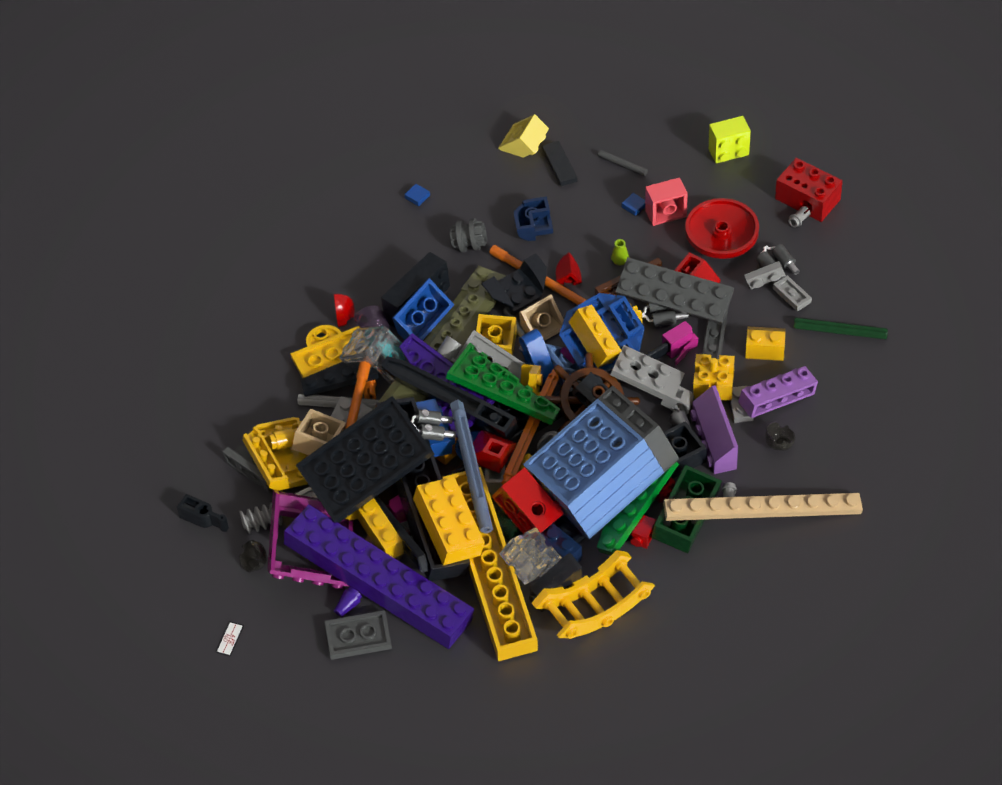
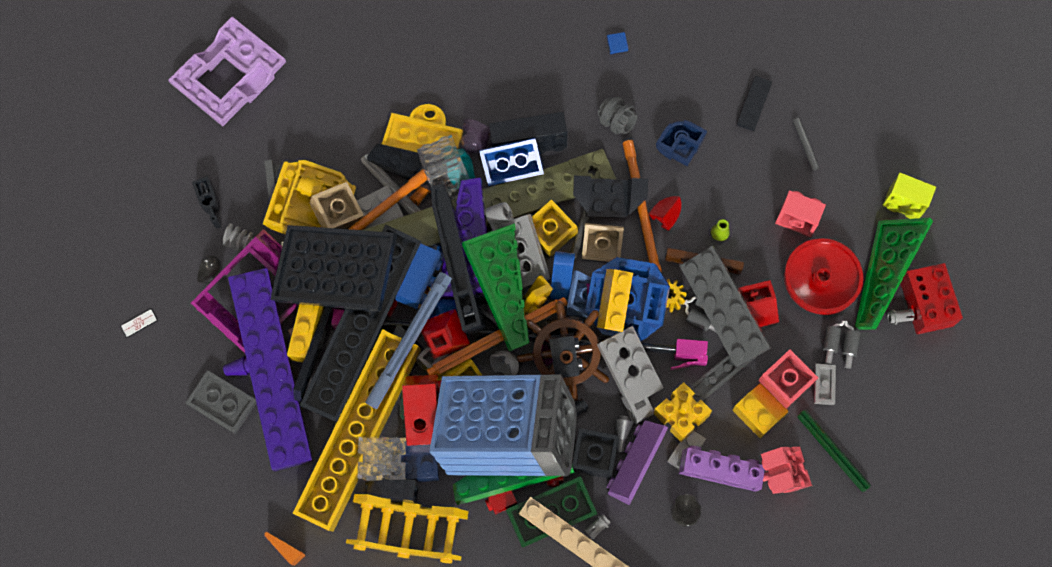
camera: 40 degrees right, 20 degrees up
(125, 395) = (243, 51): none -> lavender piece
(344, 308) = (464, 105): red brick -> none
(429, 425) = (403, 286): dark grey piece -> none
(448, 520) = (345, 376): yellow brick -> none
(512, 687) = (291, 554): none -> orange slope
(524, 137) = (747, 57): light yellow slope -> none
(634, 204) = (777, 191): blue tile -> none
(756, 184) = (891, 256): none -> green wing
(764, 305) = (788, 379): none -> coral brick
(765, 275) = (822, 354): light grey plate -> none
(821, 358) = (785, 470): none -> coral brick

